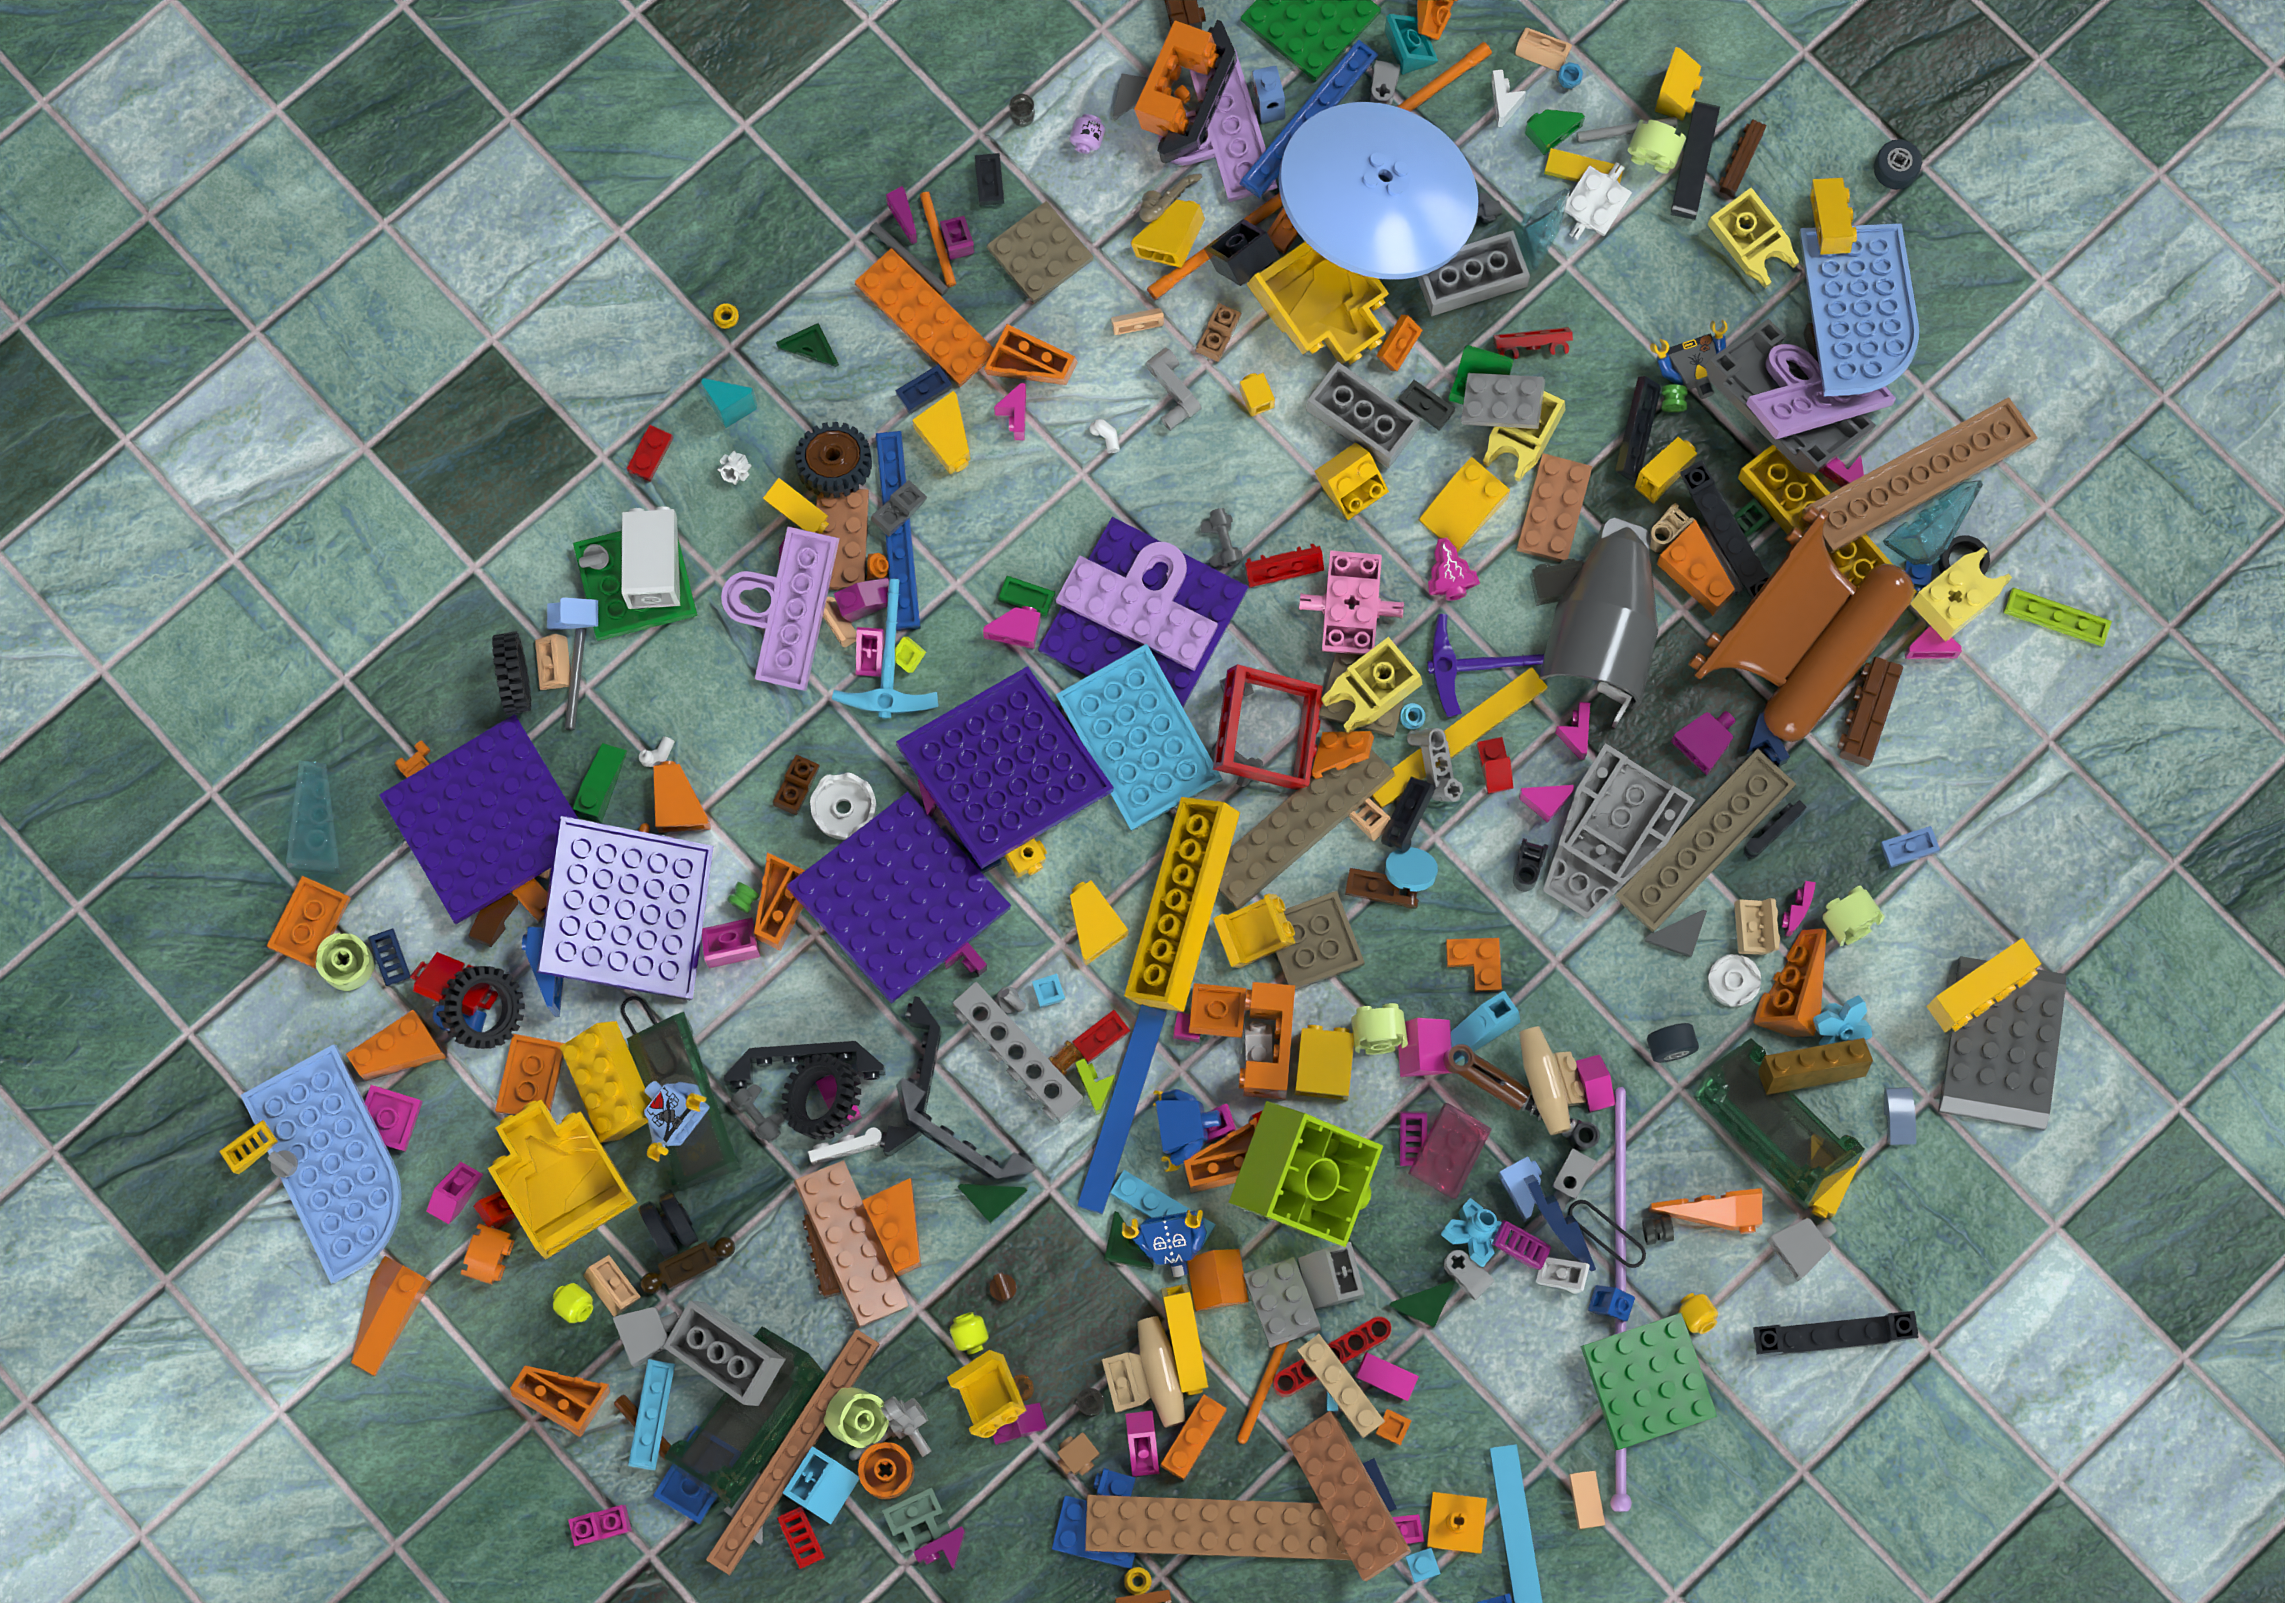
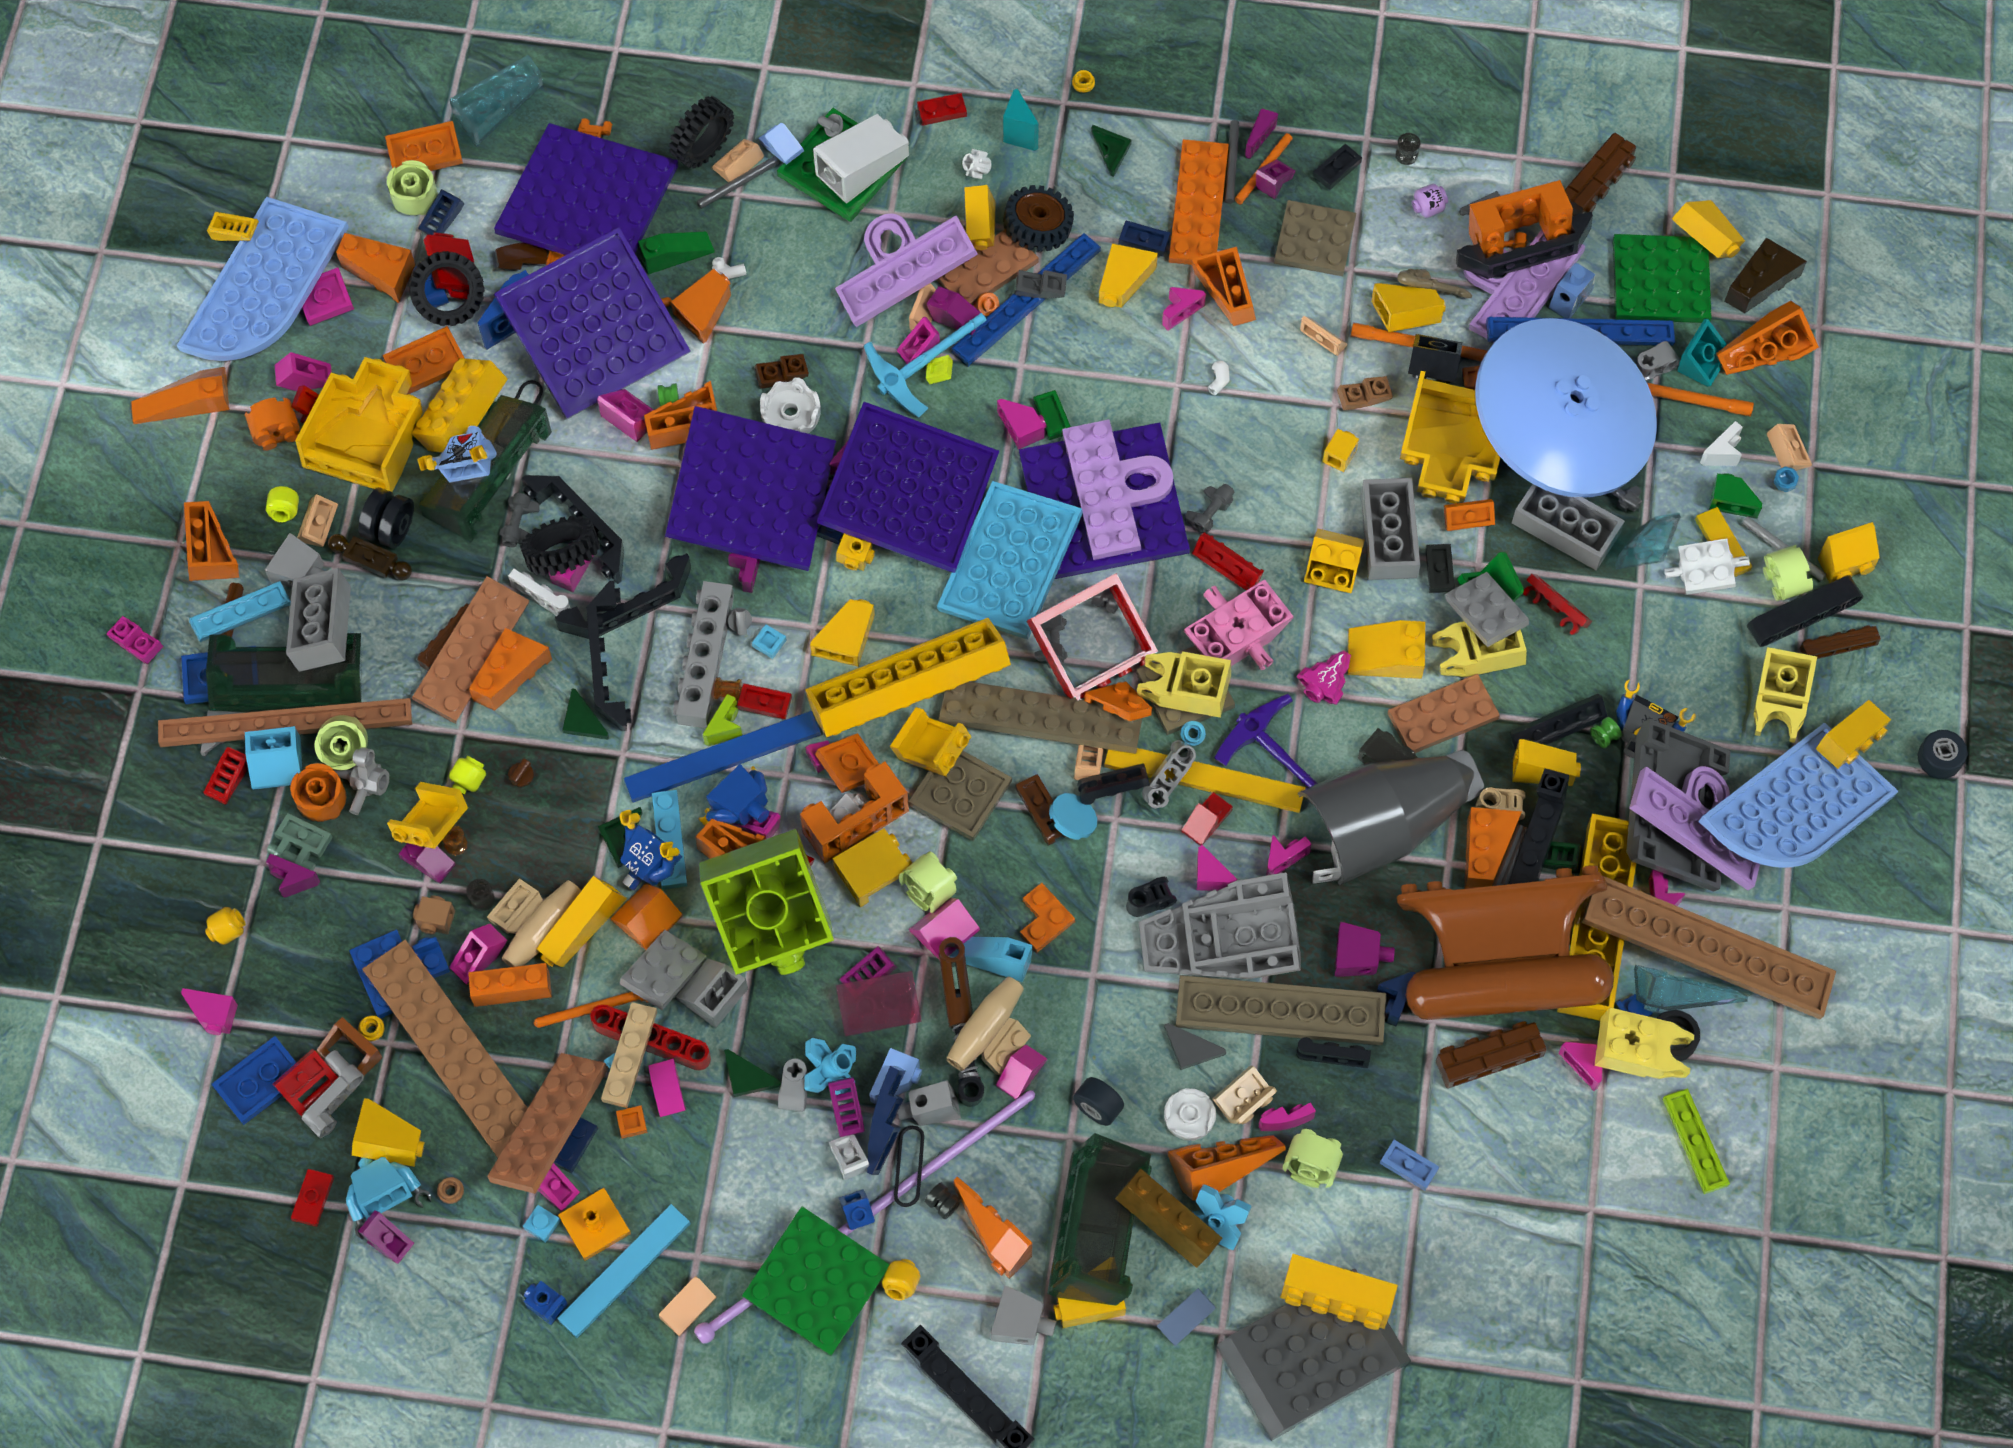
camera: 50 degrees right, 10 degrees down
(283, 1163) = (236, 253): light grey plate -> none
(1187, 405) = (1303, 374): light grey beam -> none

